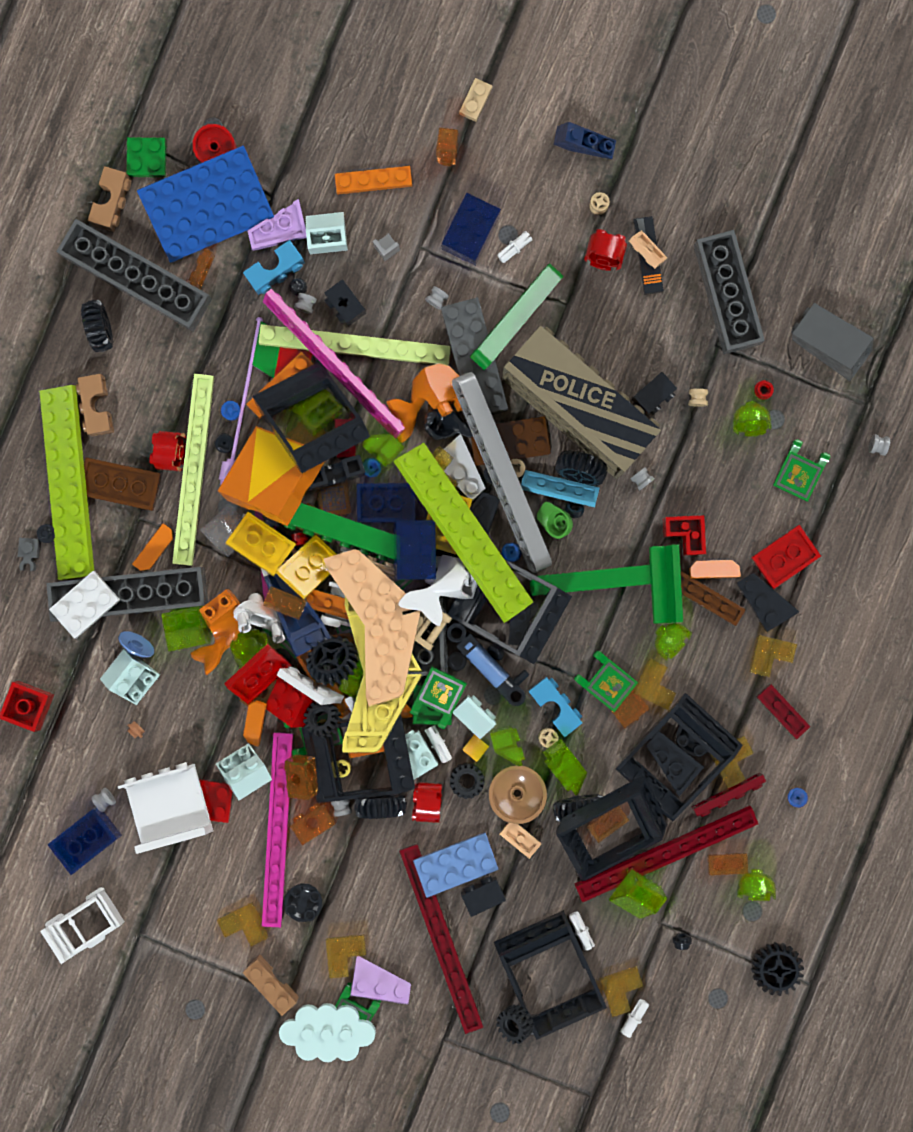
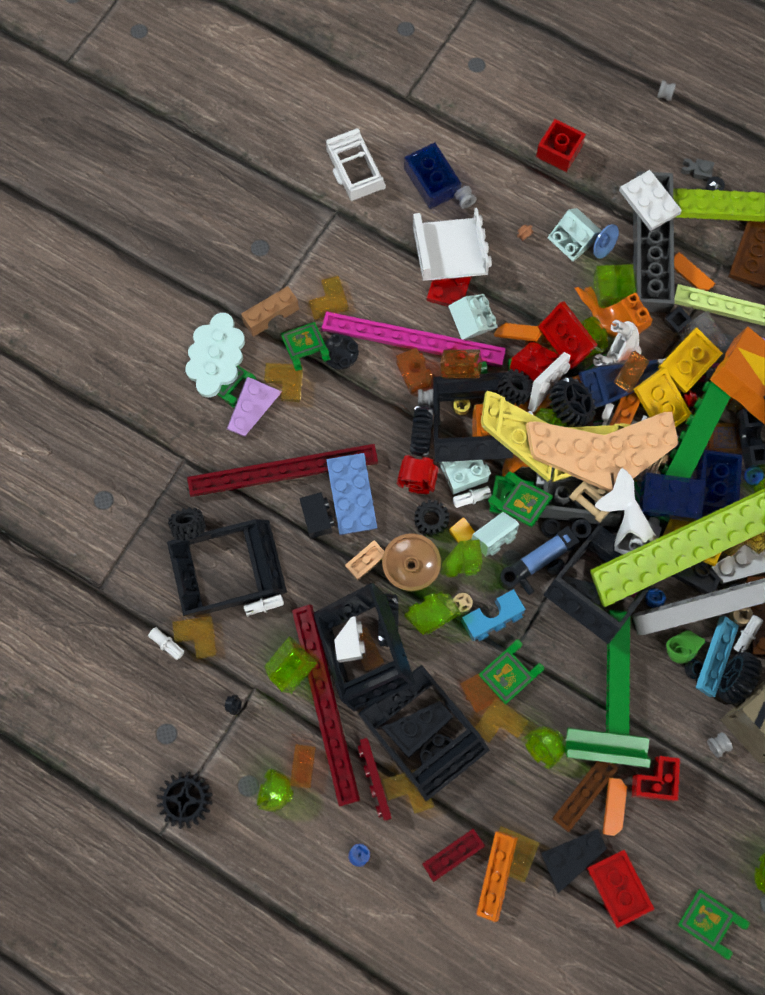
camera: 95 degrees right, 15 degrees down
(215, 560) = (677, 319): none -> black brick
(299, 943) = (303, 342): none -> green flag
(534, 461) = (748, 634): none -> white axle
(607, 842) = (348, 642): none -> white slope
(796, 670) = (496, 876): none -> orange plate

